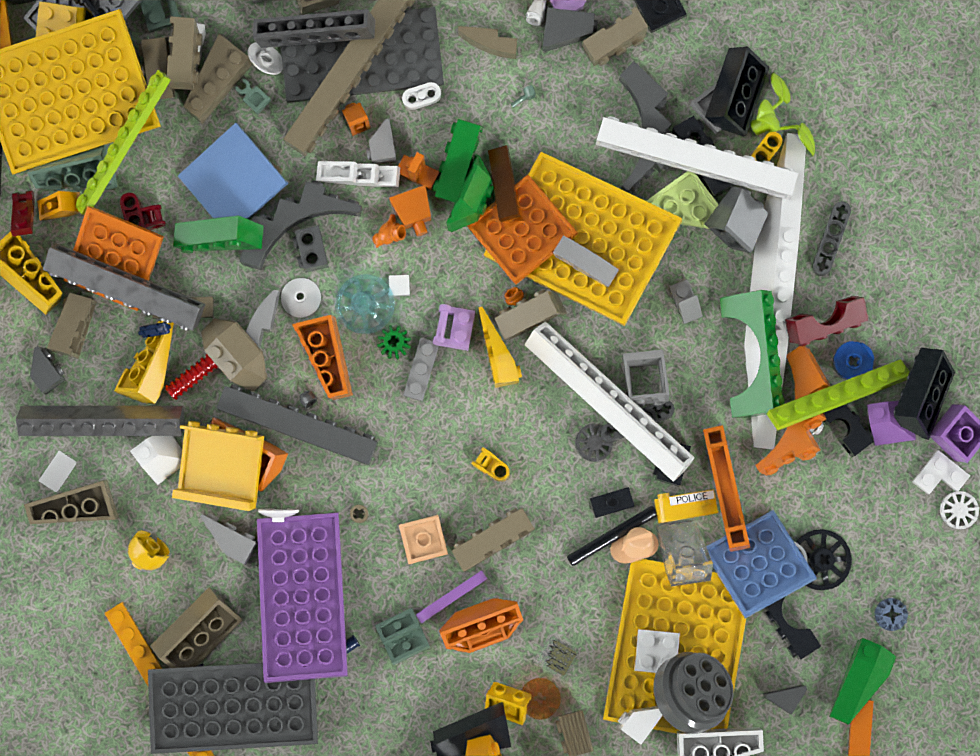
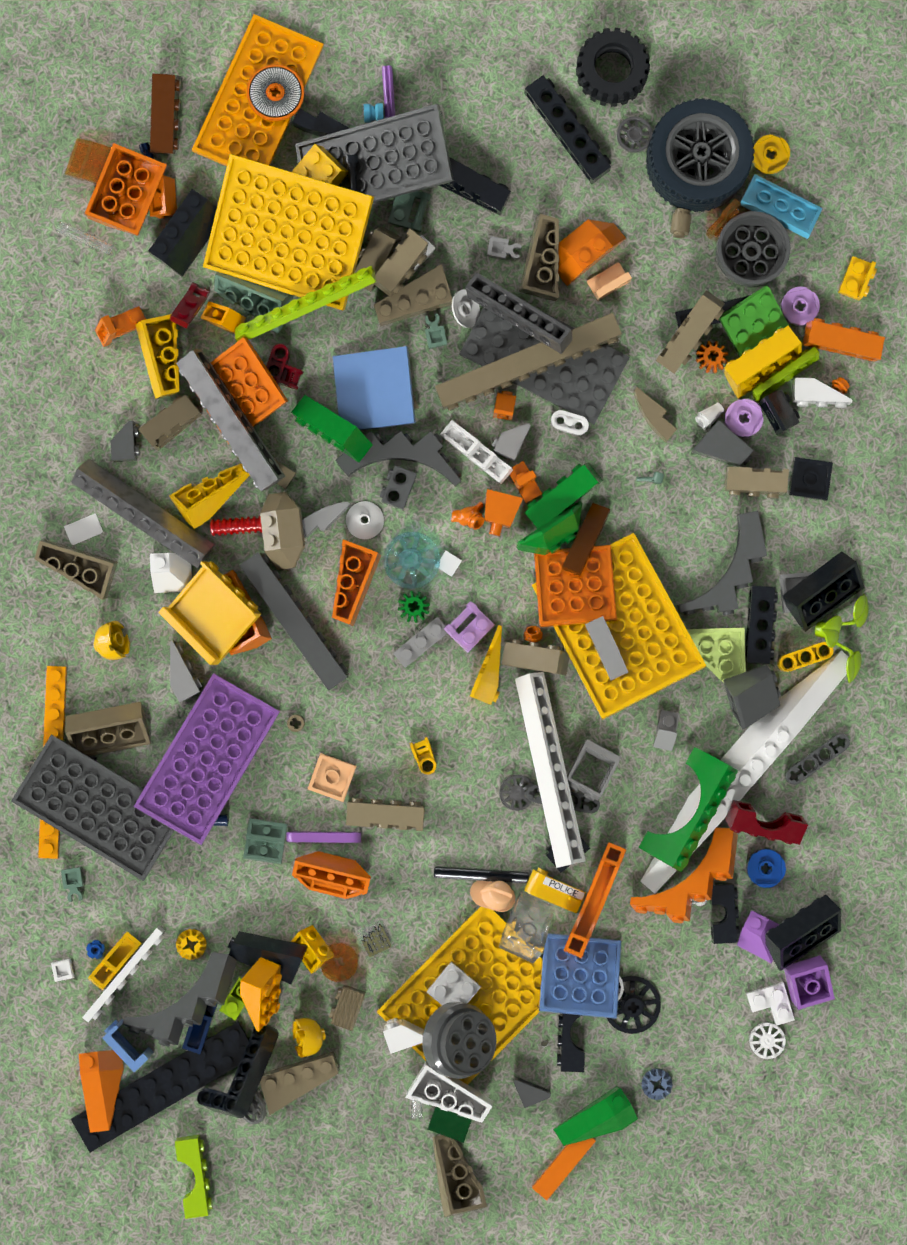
camera: 35 degrees right, 5 degrees up
(154, 329) = (232, 469): dark blue axle -> none
(278, 514) = (232, 681): white dish -> none
(307, 399) = (316, 605): dark grey hinge -> none
(612, 502) = (499, 848): black plate -> none
(697, 158) = (752, 624): white brick -> none
(838, 394) = (733, 888): lime plate -> none

